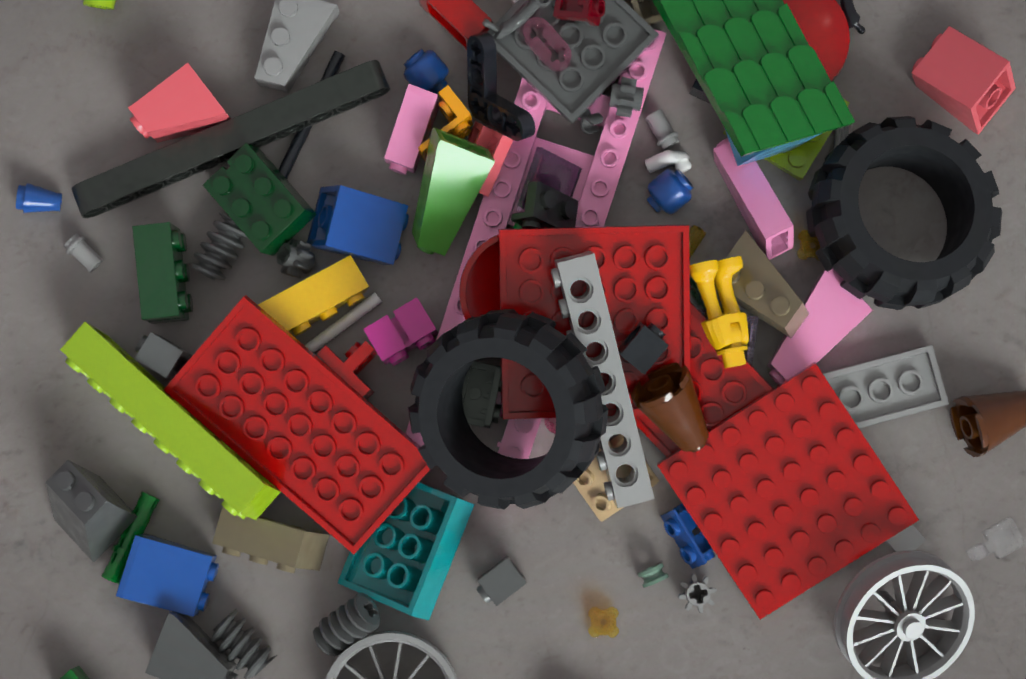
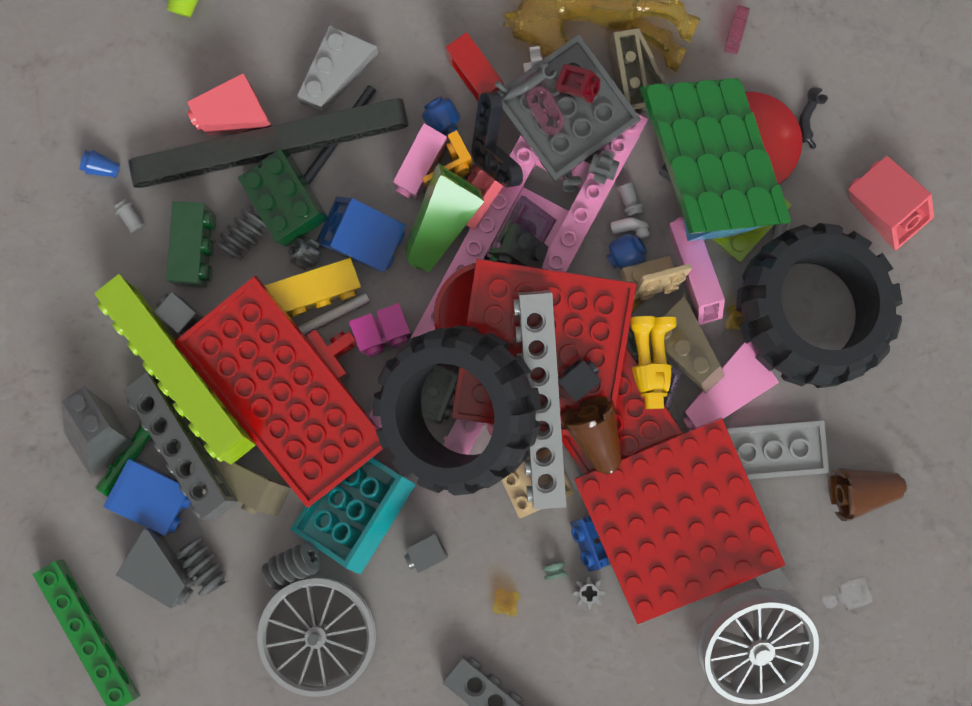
camera: 15 degrees right, 0 degrees up
(248, 558) = (192, 451): none -> dark grey brick
(708, 214) = (655, 277): none -> tan bracket

